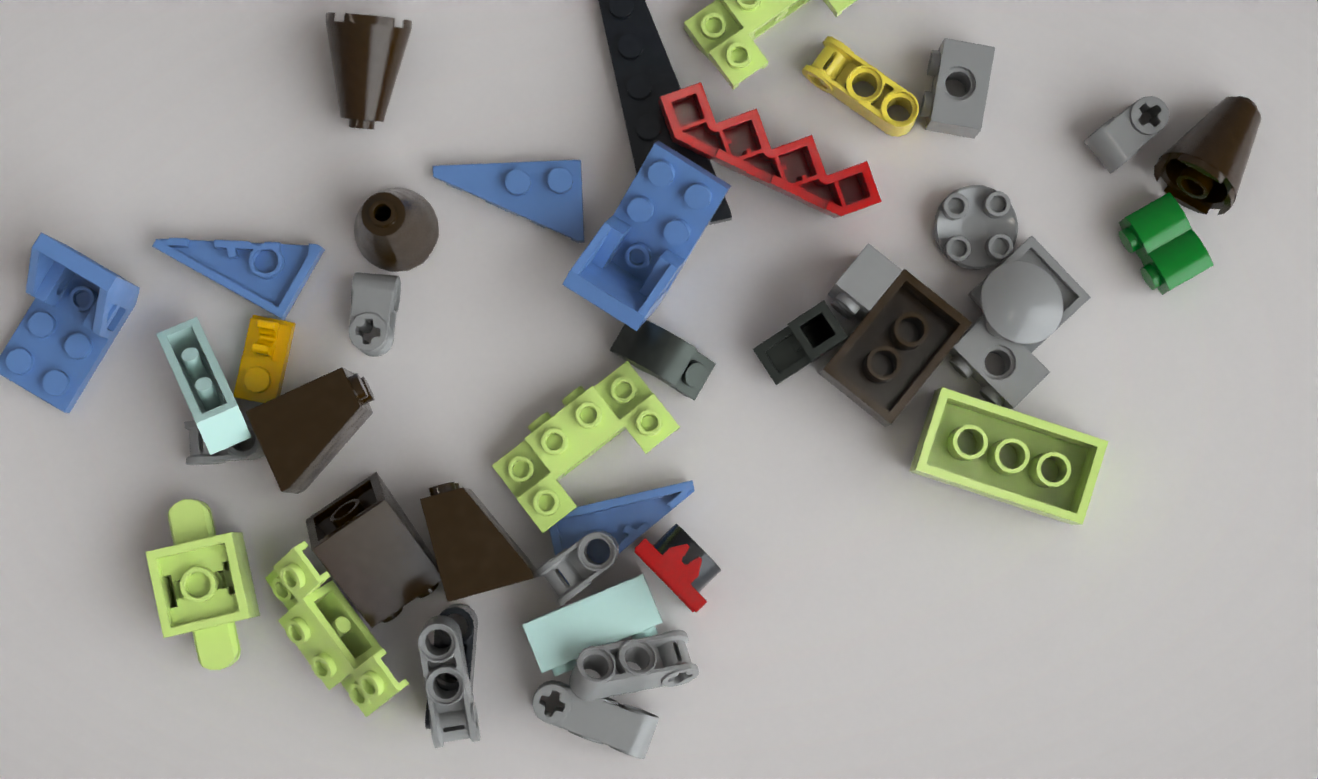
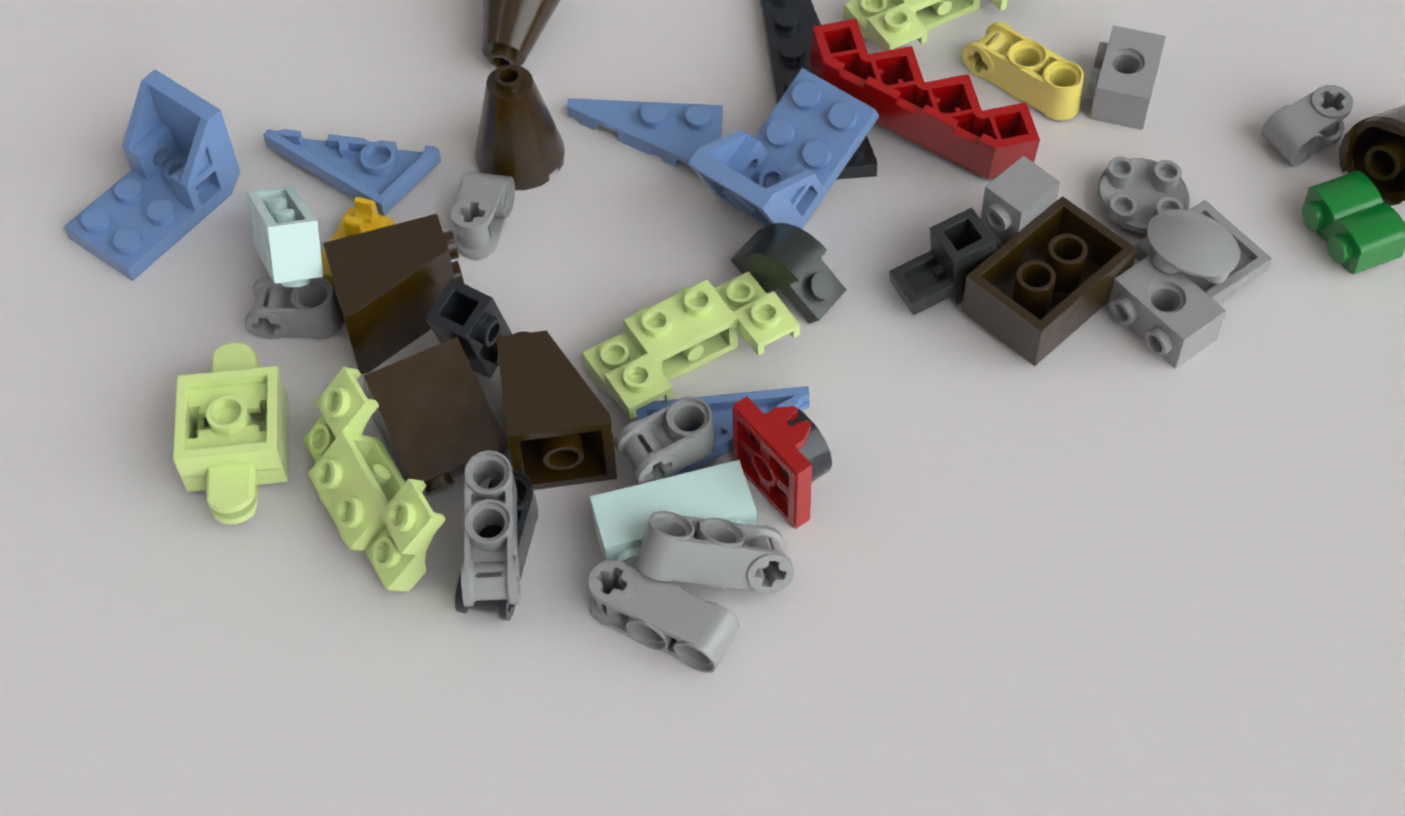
camera: 10 degrees right, 30 degrees down
(393, 468) = (474, 320): none -> black brick
(1008, 456) = (1176, 390): yellowish green brick -> none

